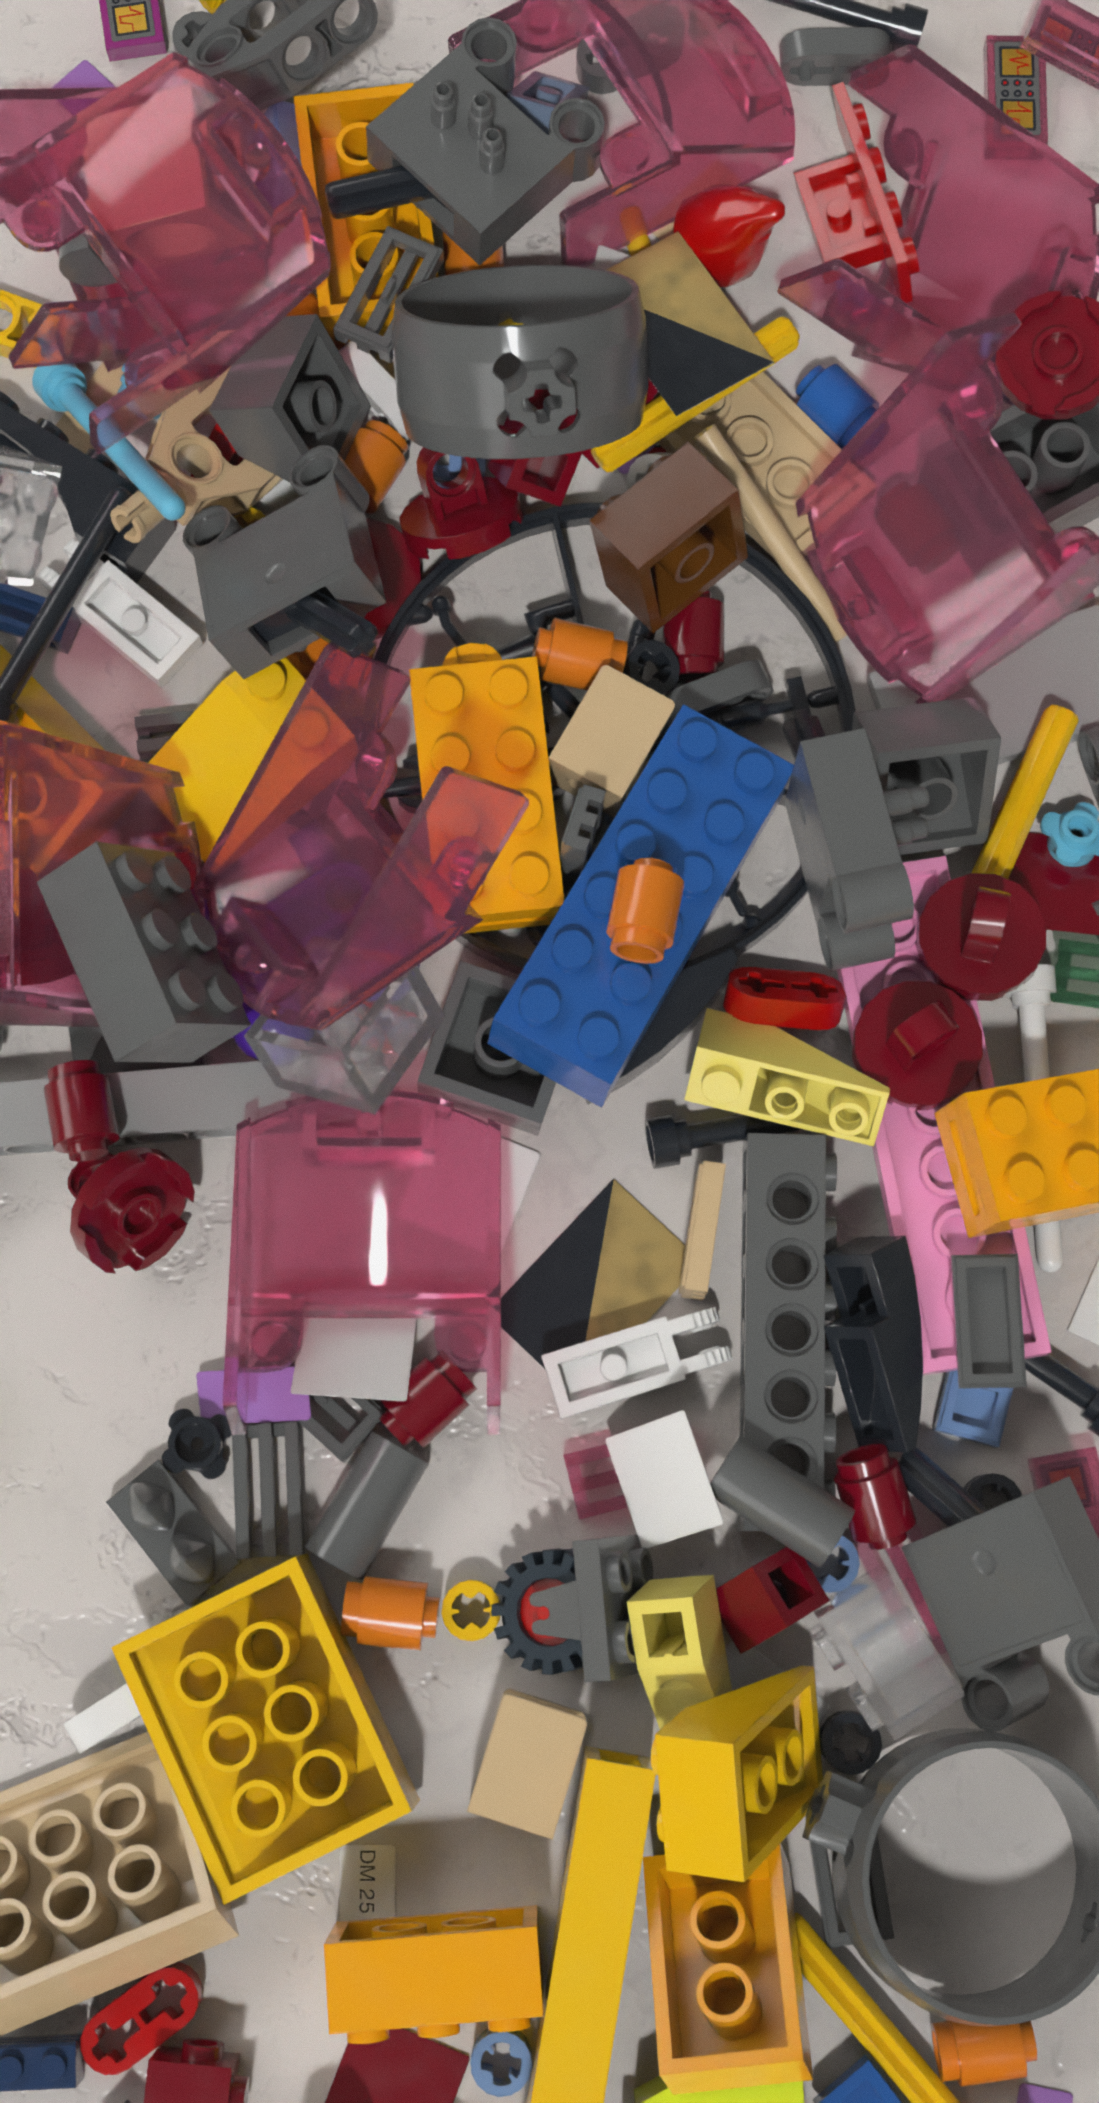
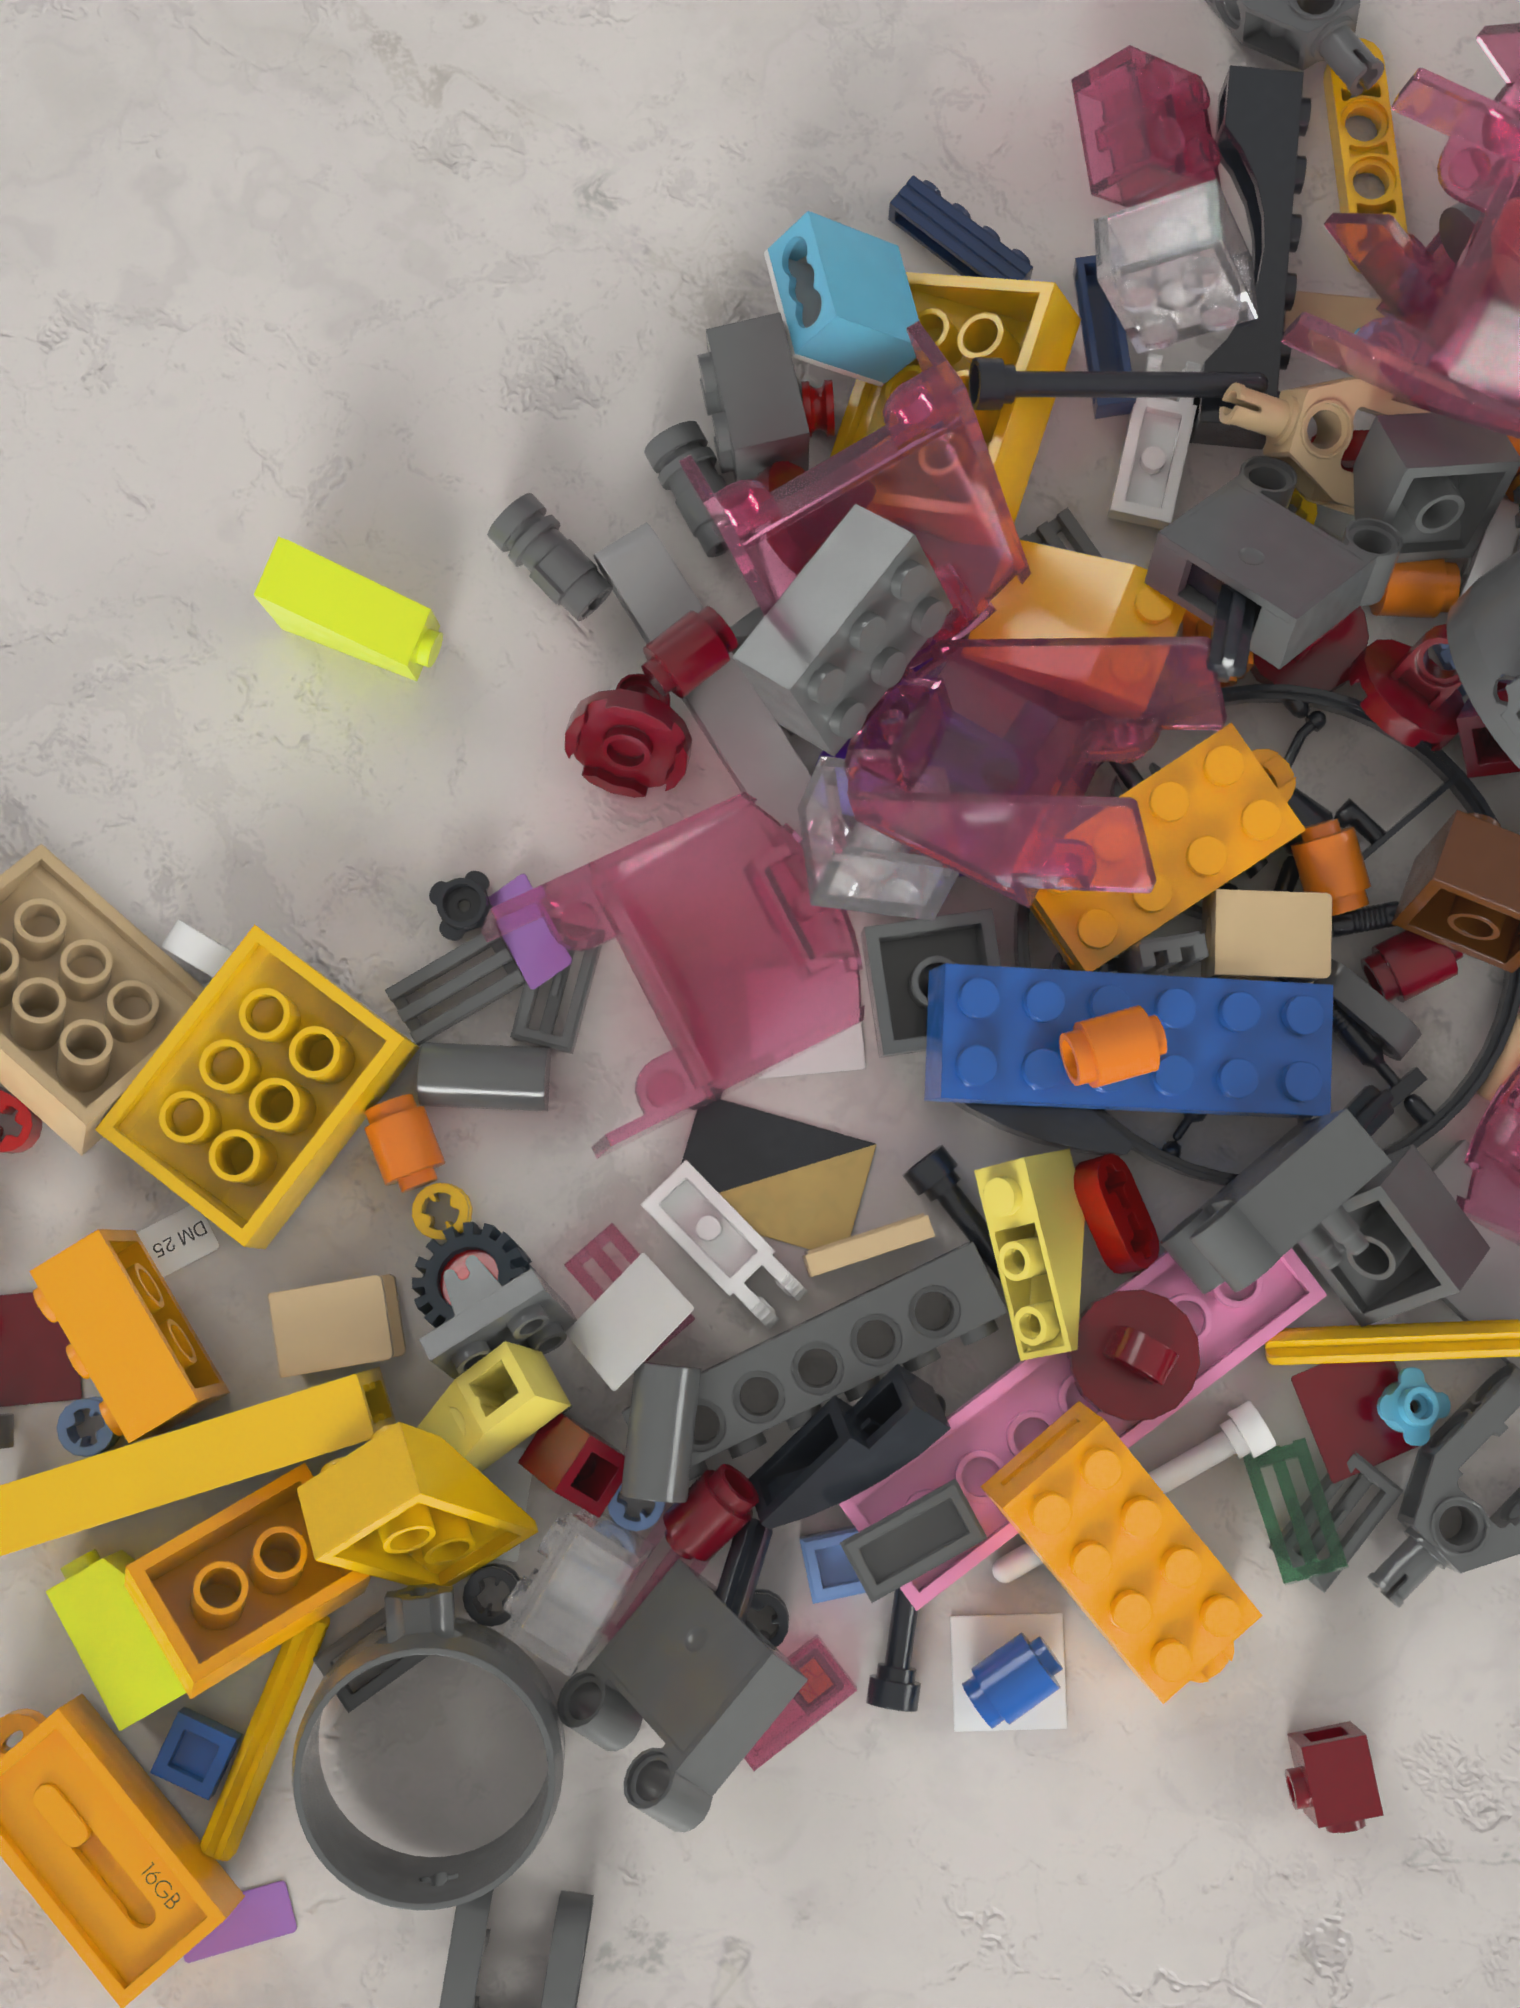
camera: 70 degrees right, 5 degrees up
(65, 390) = (1334, 281): medium azure piece -> none
(174, 1532) = (381, 926): dark grey tile -> none
(355, 1358) = (601, 1001): white sticker -> none
(433, 1401) = (595, 1080): dark red brick -> none
(661, 657) = (1372, 947): black bush -> none
(981, 936) = (1266, 1364): dark red tile -> none
(981, 2052) = (284, 1838): orange brick -> none

